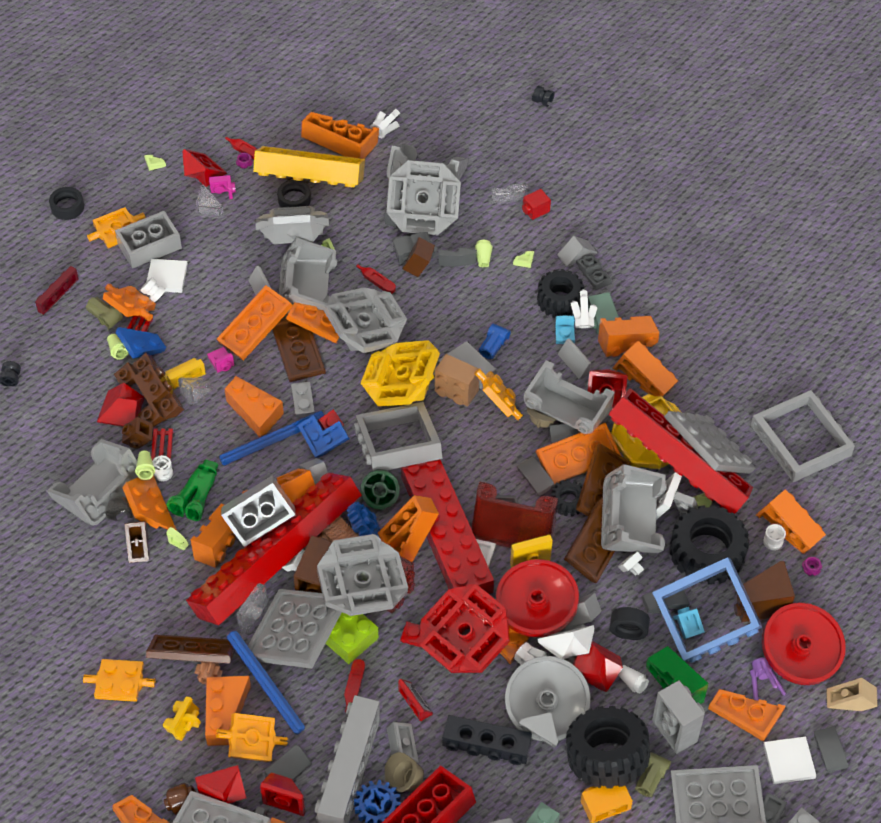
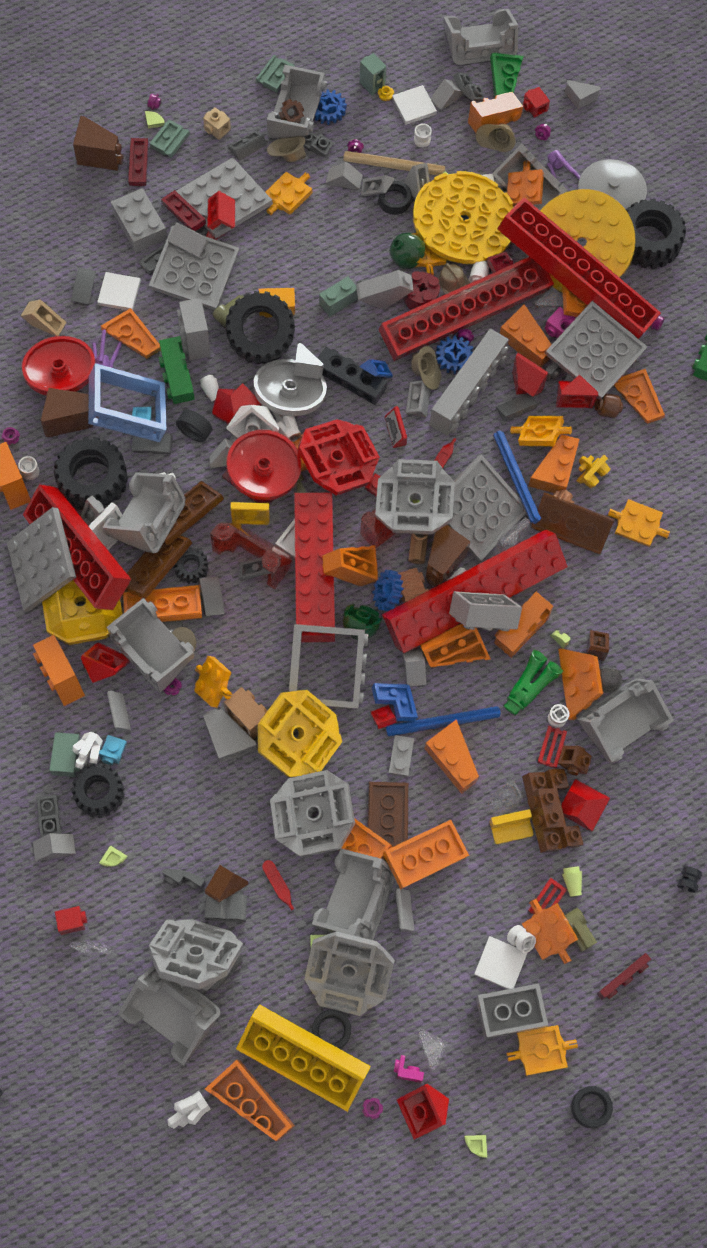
camera: 165 degrees left, 15 degrees up
(140, 342) = (548, 871): blue wing -> none
(144, 467) = (576, 711): yellowish green cone -> none
(221, 359) = (470, 829): dark pink bracket -> none
(242, 146) = (364, 1129): red piece -> none
(459, 747) = (377, 368): none -> blue slope
(484, 252) = (153, 877): yellowish green cone -> none
(495, 339) = (185, 762): blue piece -> none
(621, 334) = (54, 717): orange wedge -> none

